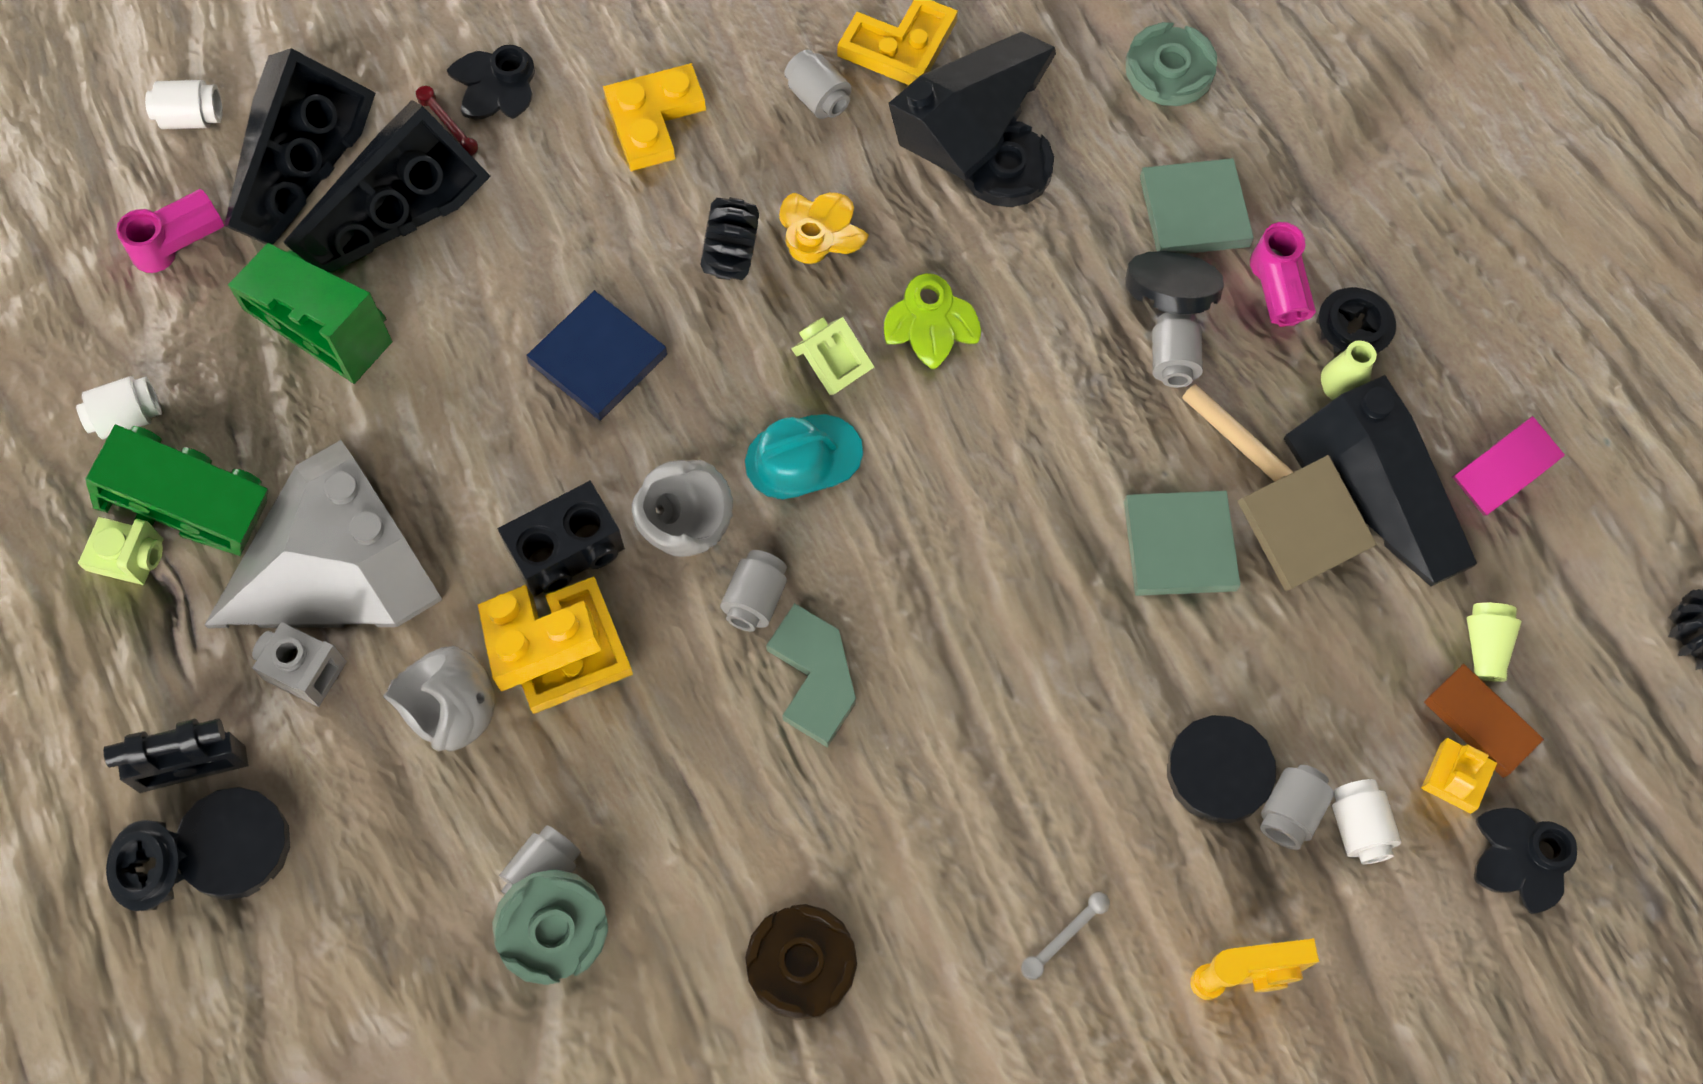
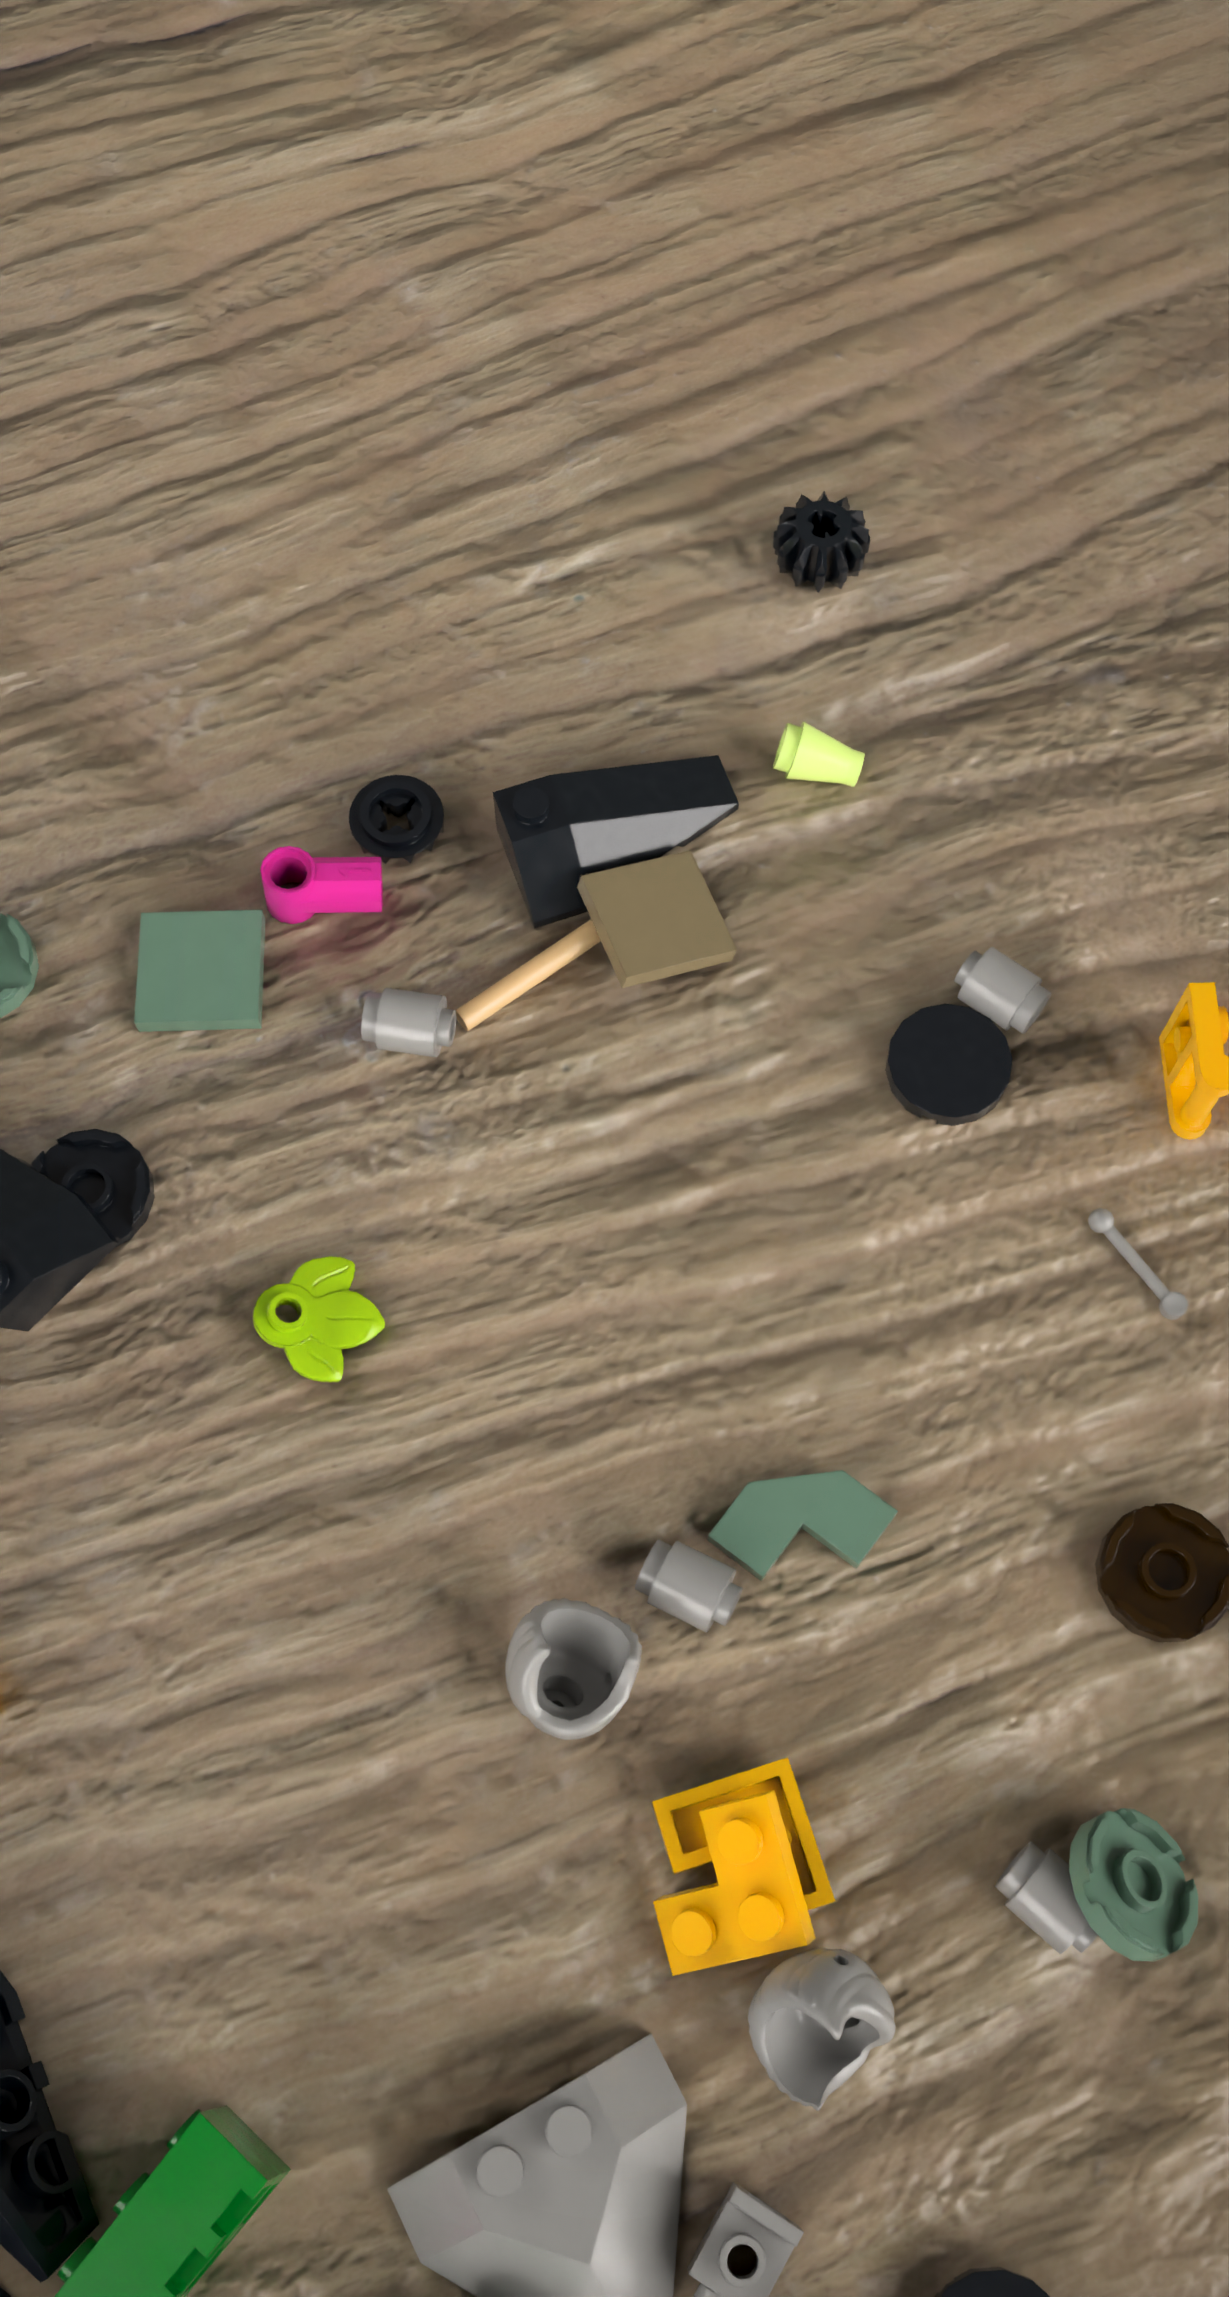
camera: 80 degrees left, 0 degrees up
(555, 528) = (576, 1851): black brick -> none
(597, 355) = (301, 1785): dark blue tile -> none
(729, 238) = (160, 1570): black gear -> none
(803, 456) = (491, 1508): teal piece -> none
(820, 226) = (139, 1443): yellow plate -> none
(833, 353) = (351, 1450): yellowish green bracket -> none
(1174, 282) = (316, 1008): black tile -> none
(1181, 543) = (664, 1062): sand green tile -> none
(1348, 369) = (469, 836): yellowish green cone -> none
(1365, 821) = (1022, 923): white brick -> none
(1459, 775) = (966, 823): yellow tile -> none
(1483, 720) = (905, 787): dark orange tile -> none
(1508, 466) = (610, 695): dark pink slope -> none
(1517, 862) = (1061, 786): black plate -> none

